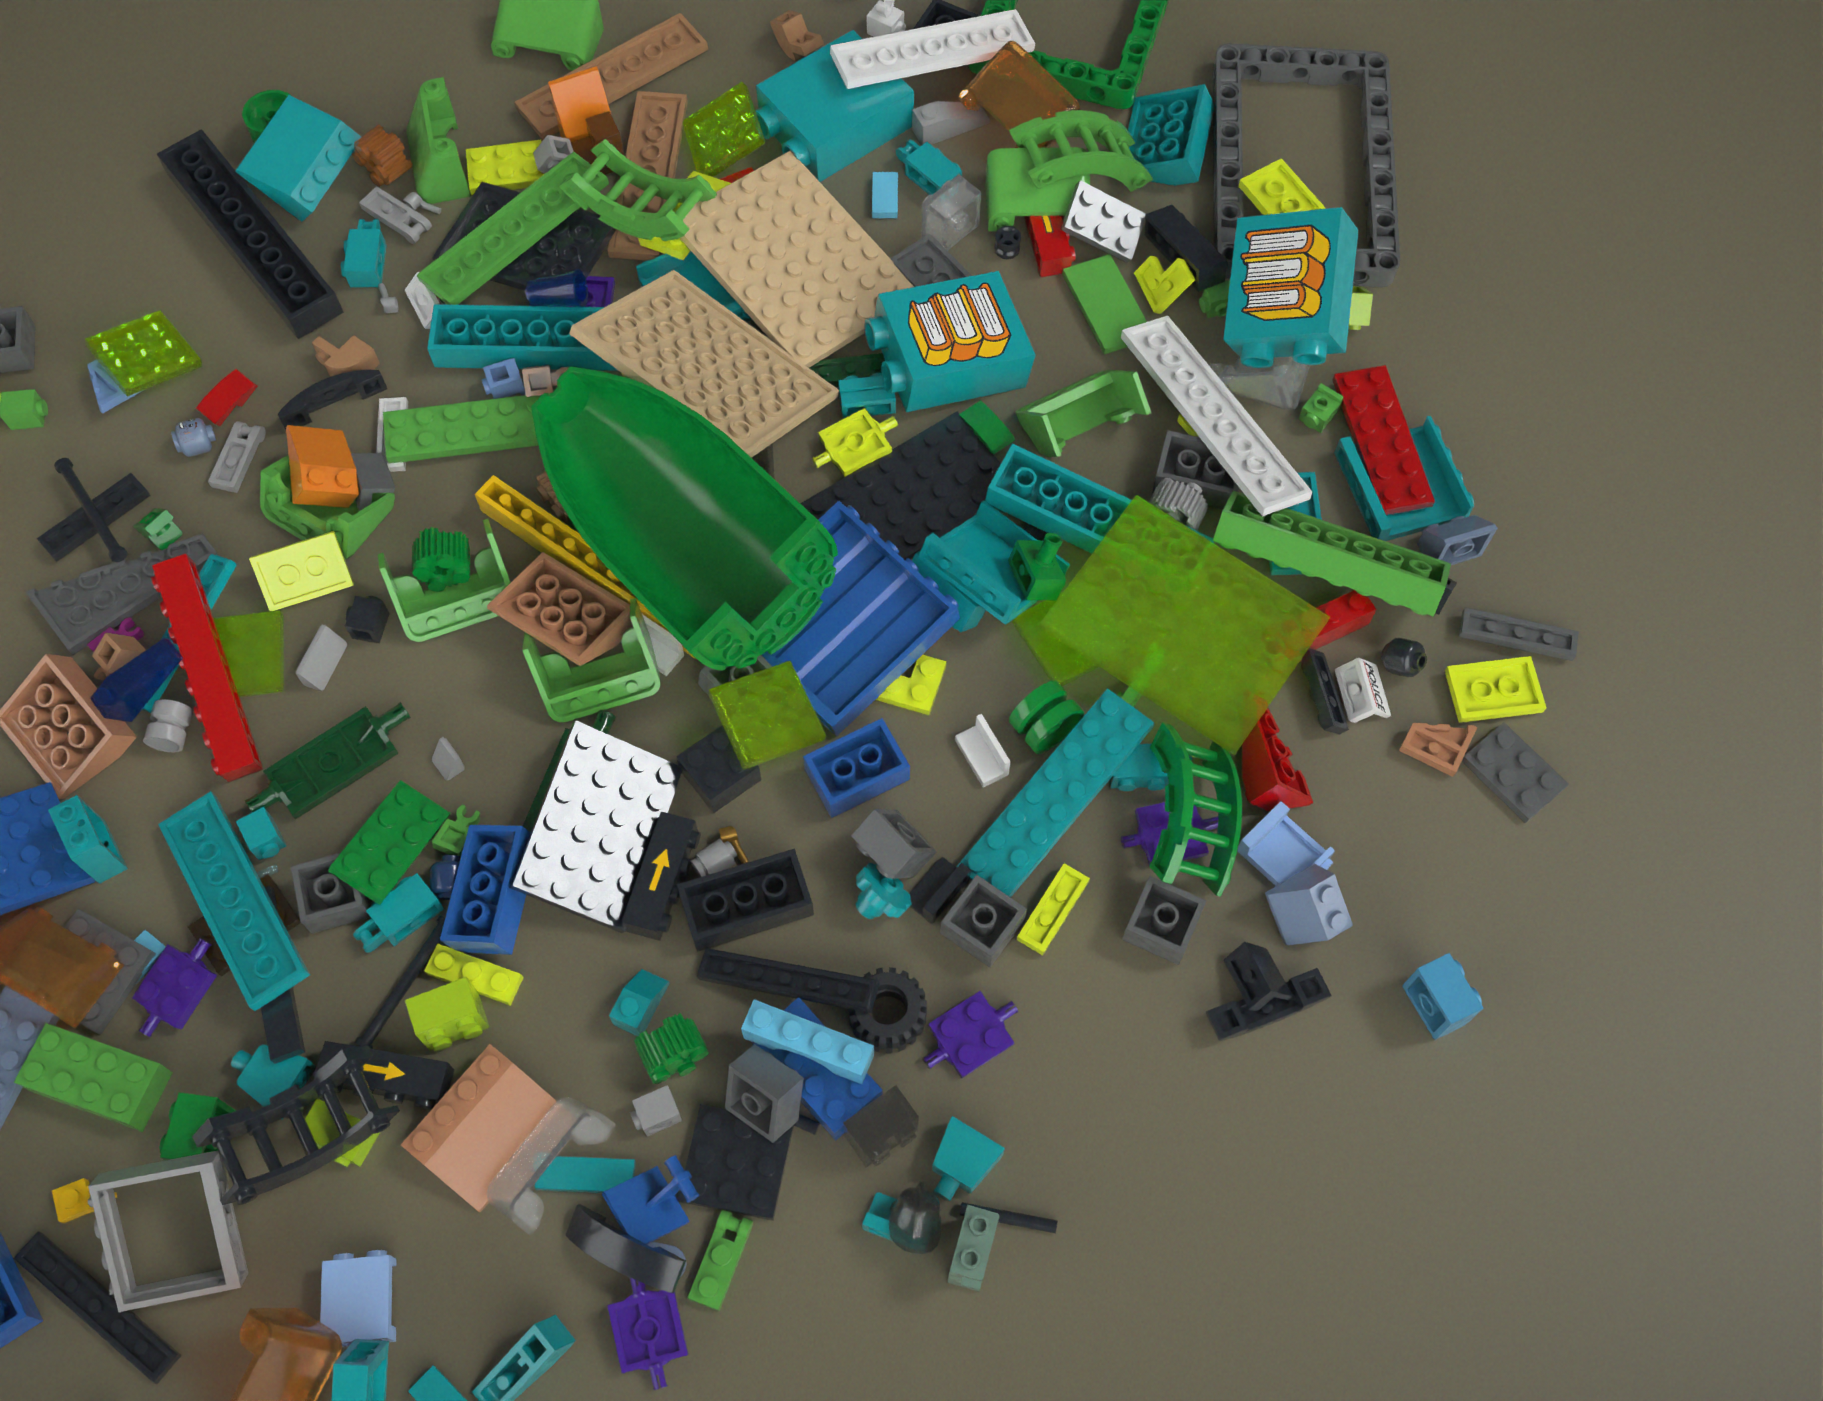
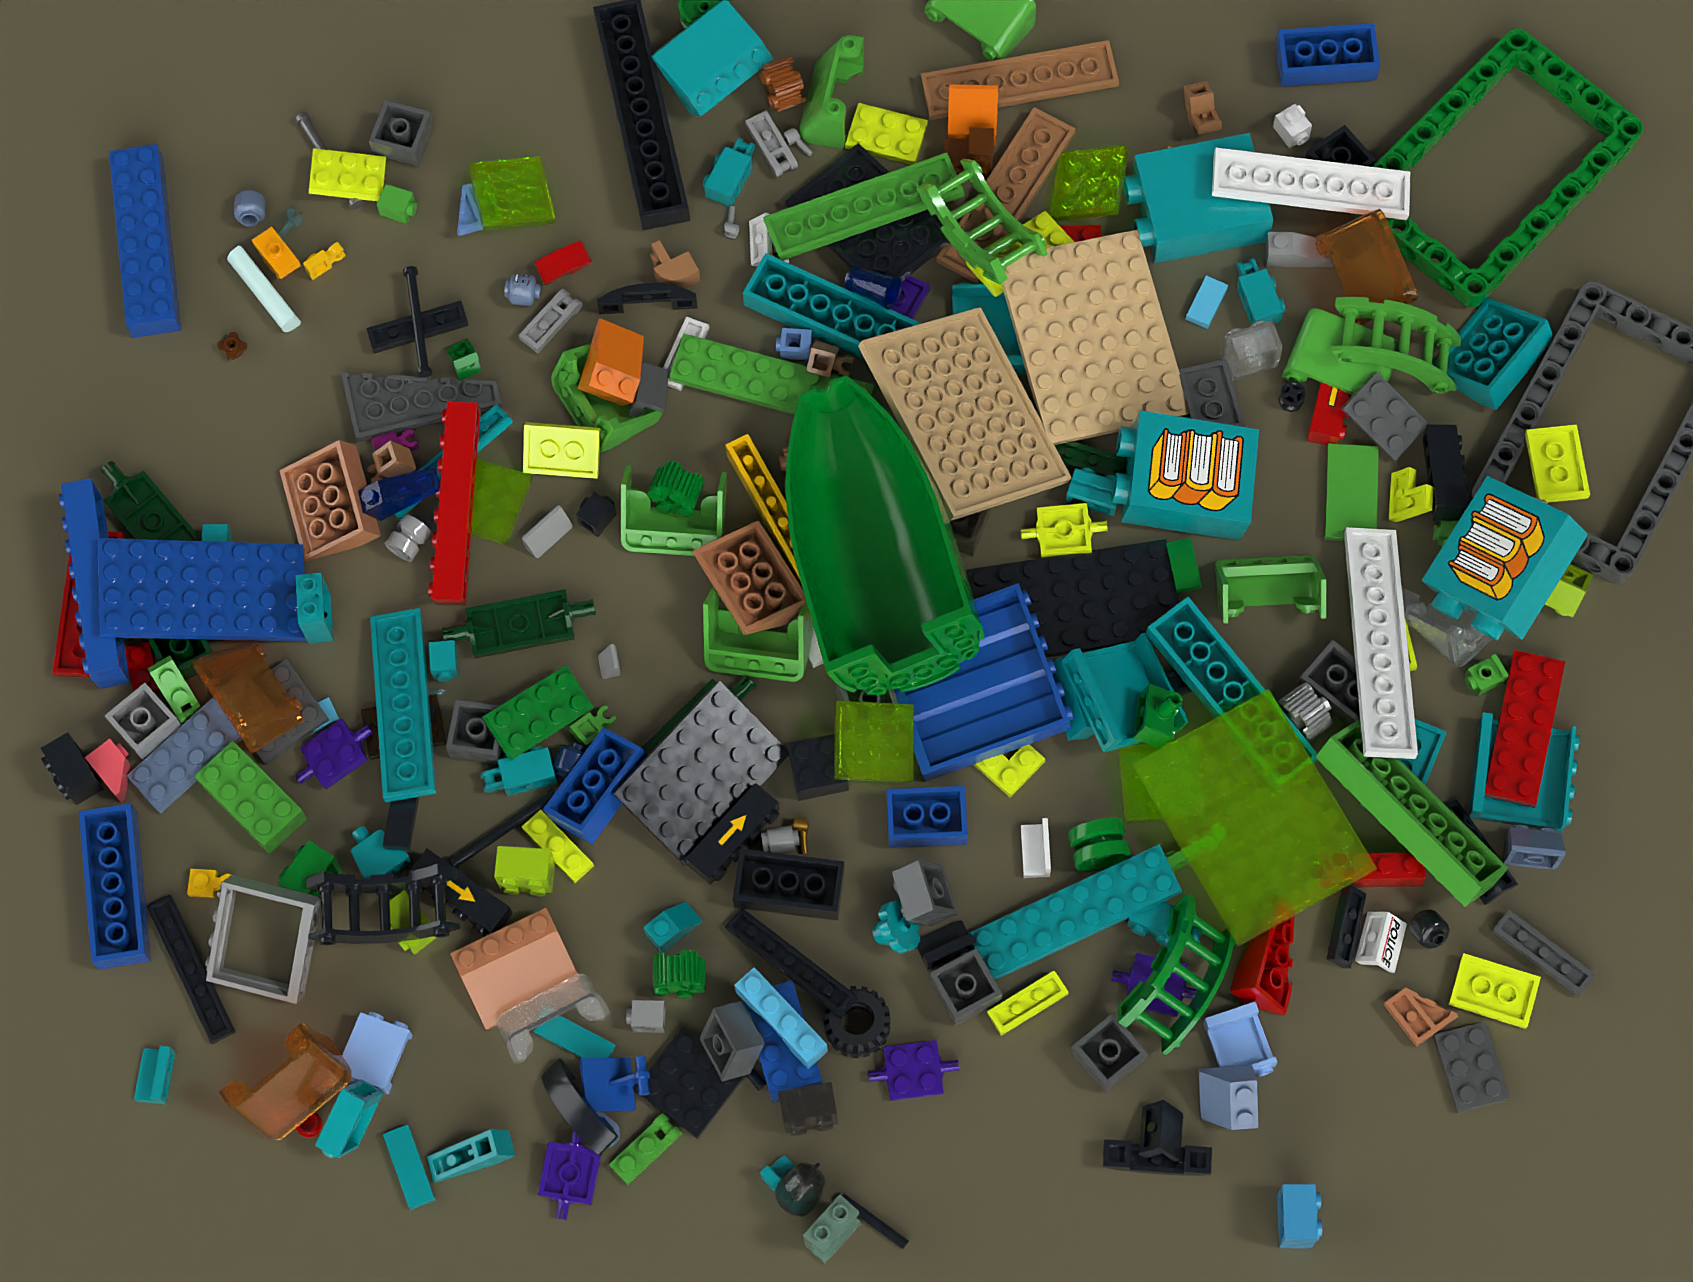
camera: 30 degrees right, 5 degrees up
(548, 156) = (929, 144): light grey brick -> none
(963, 1159) = (860, 1162): teal torso -> none

